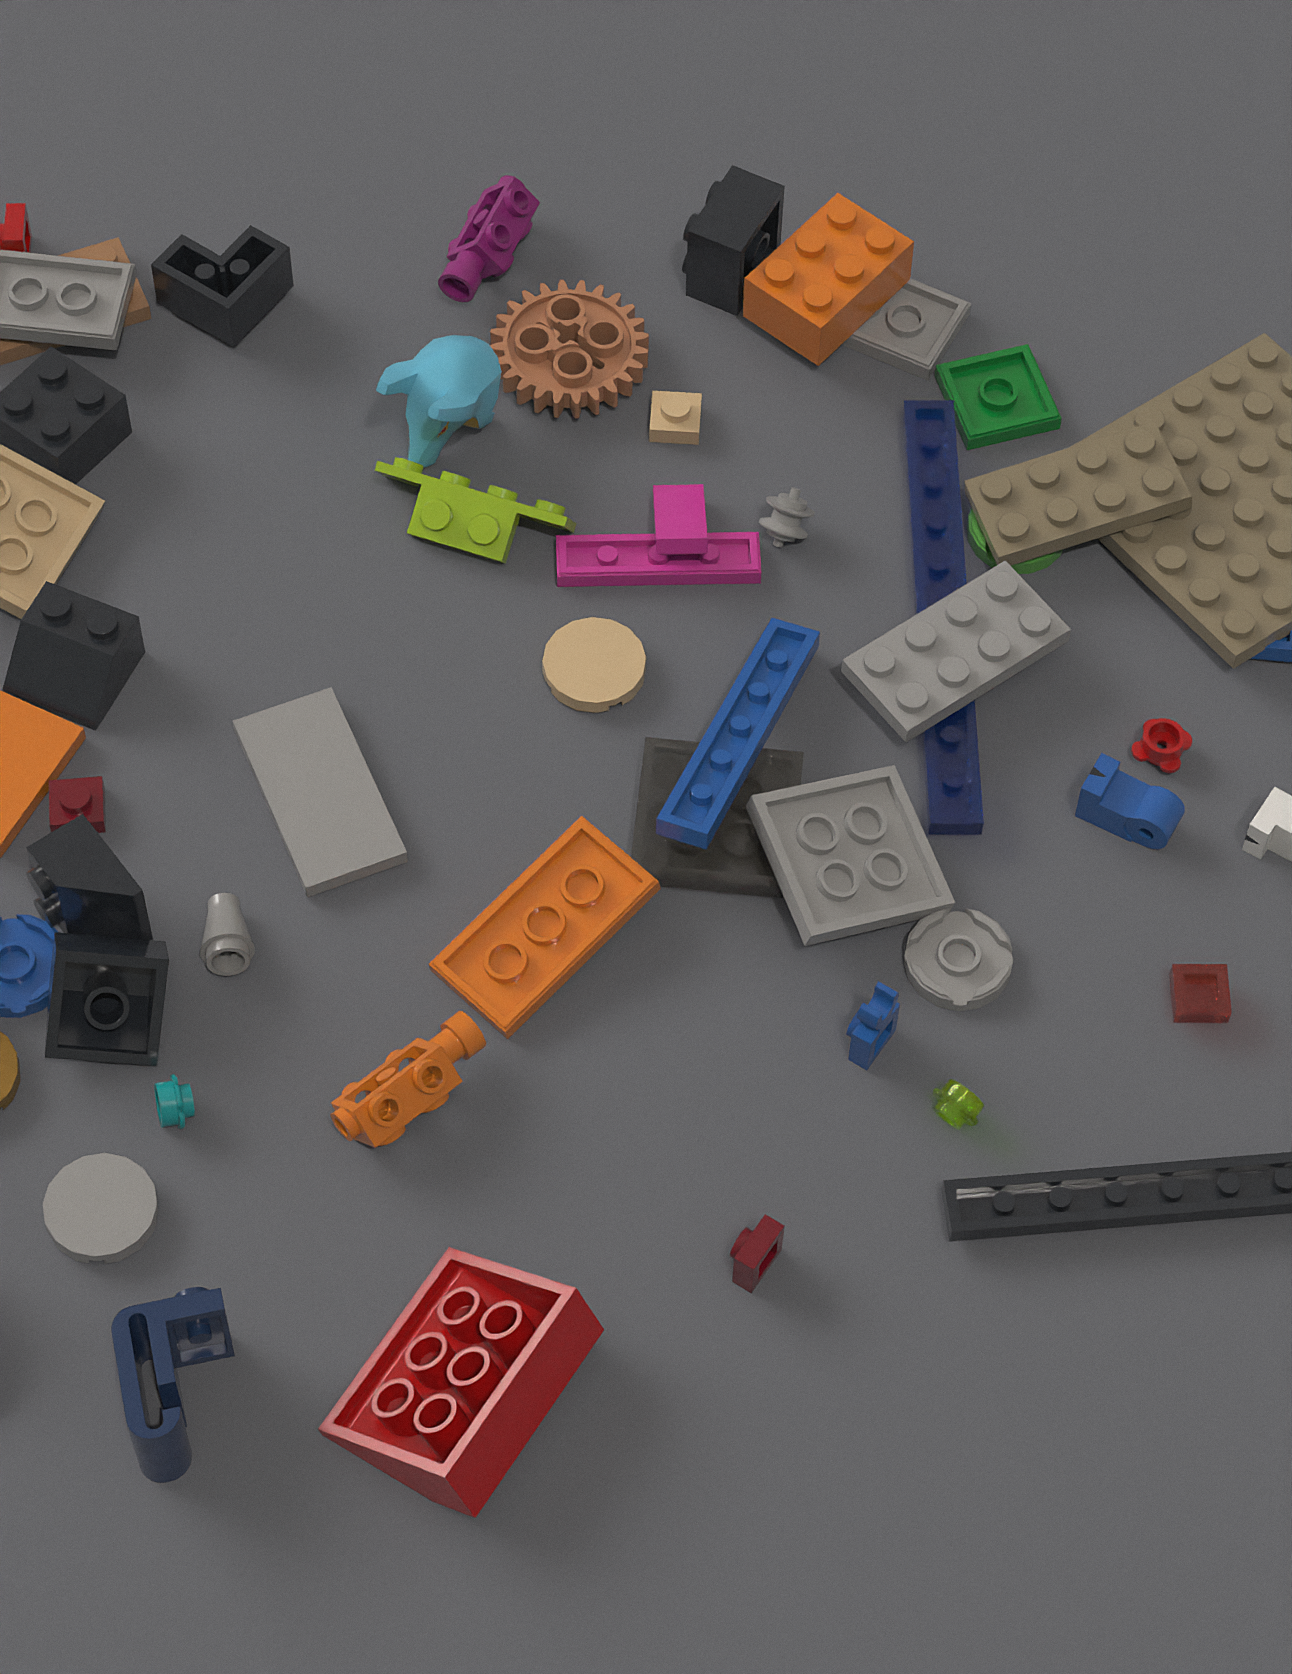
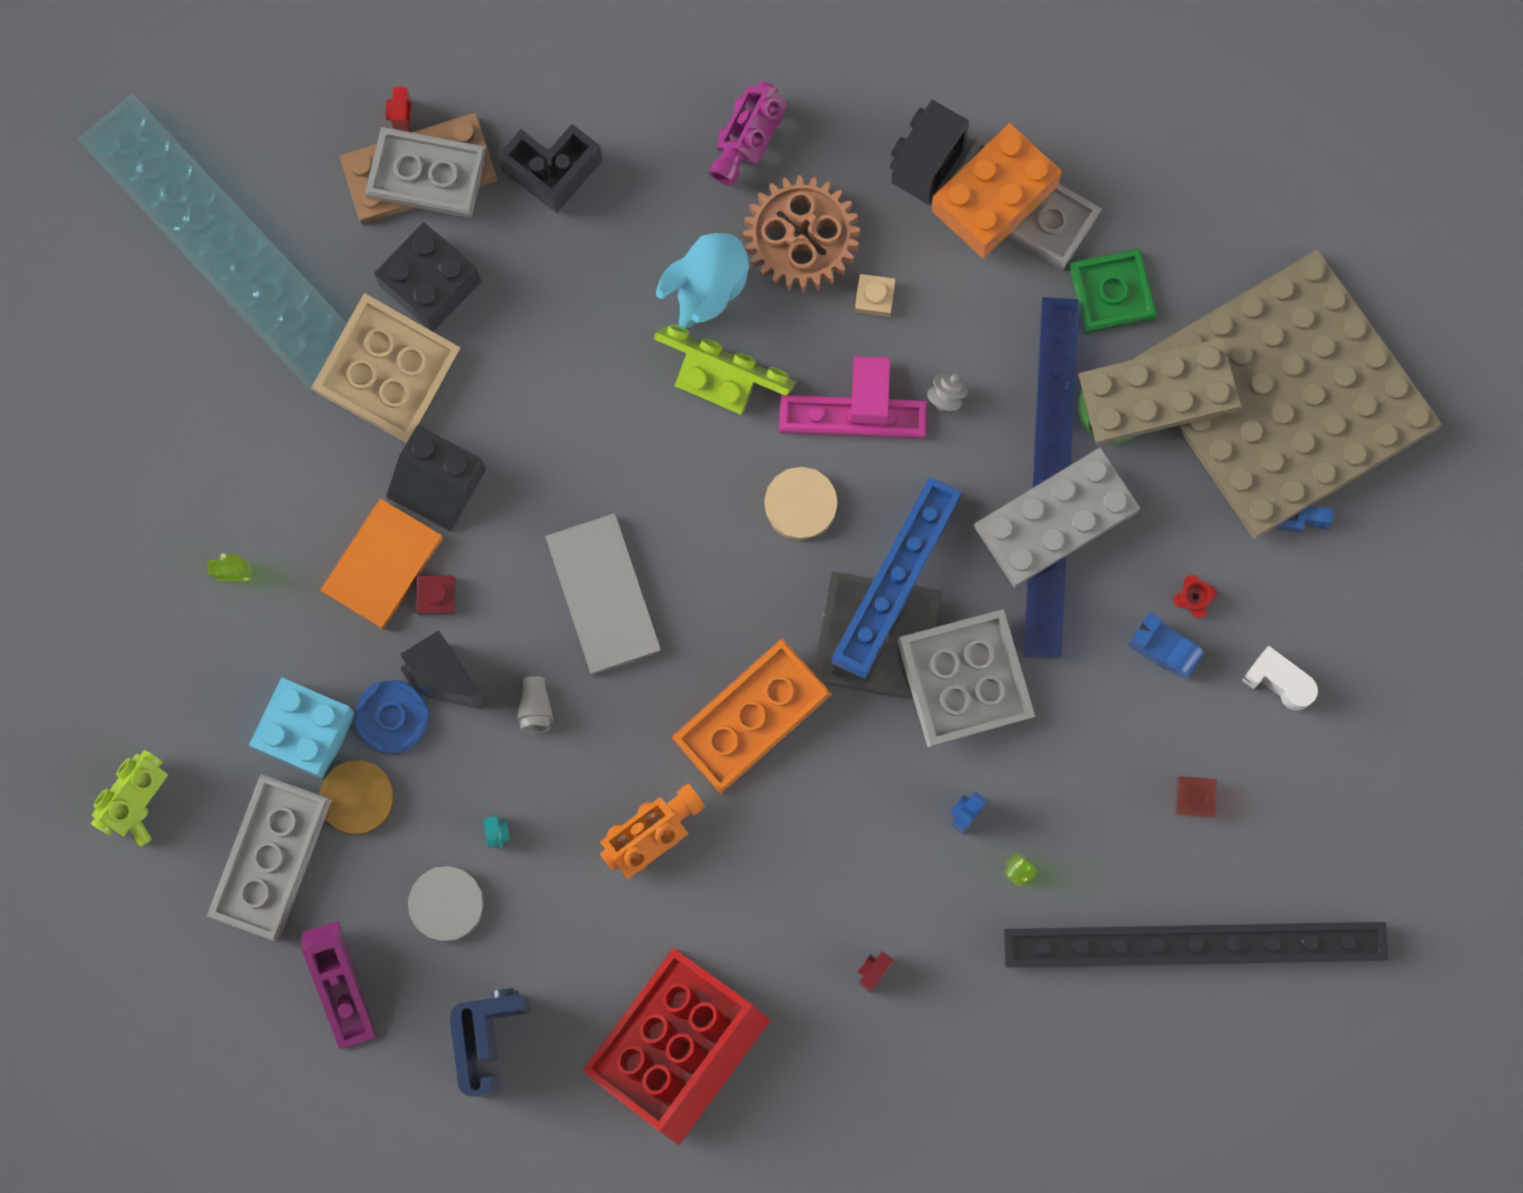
camera: 10 degrees right, 20 degrees up
(106, 999) = (452, 753): black slope -> none
(958, 959) = (1033, 755): light grey tile -> none

